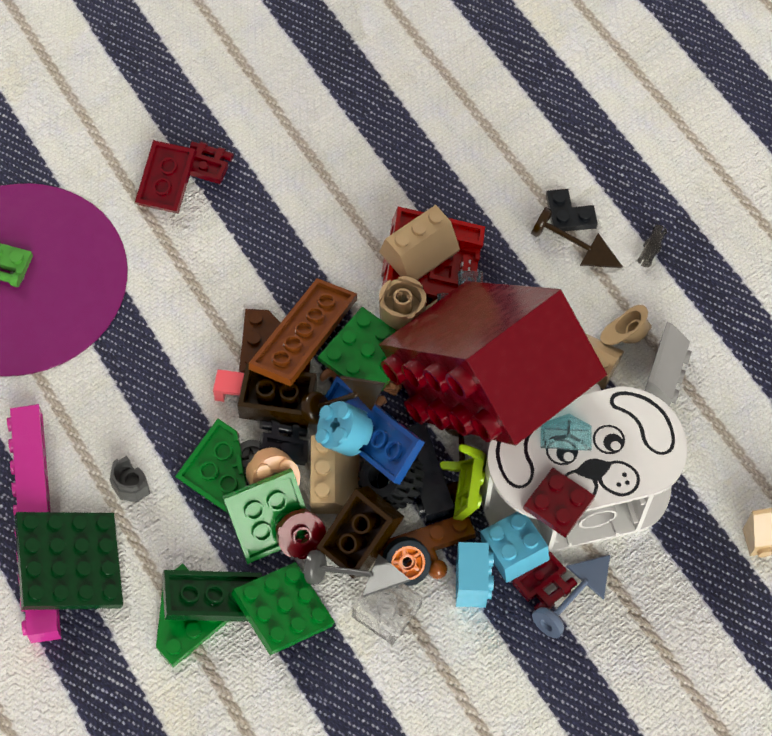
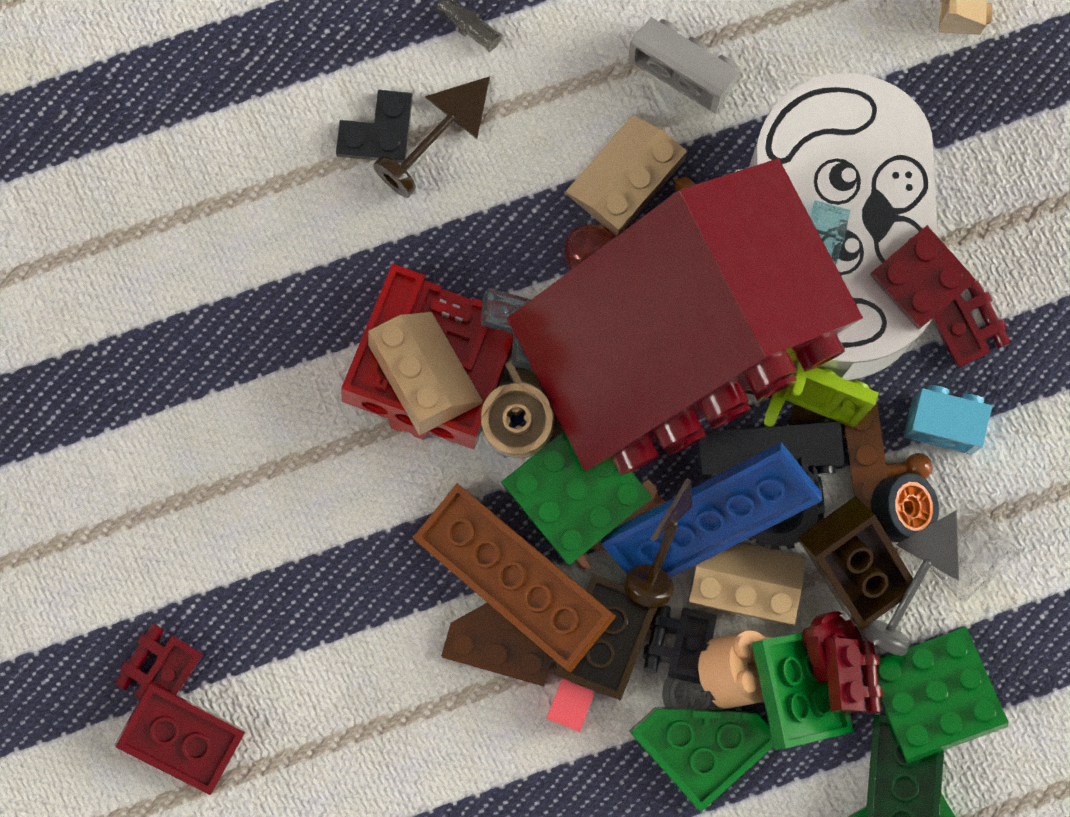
camera: 70 degrees left, 20 degrees up
(282, 538) = (845, 676): none -> dark red plate
(343, 428) = (708, 552): medium azure brick -> none
(515, 545) = (923, 361): medium azure brick -> none
(592, 574) = (973, 255): sand blue piece -> none
(627, 328) = (602, 101): tan piece -> none

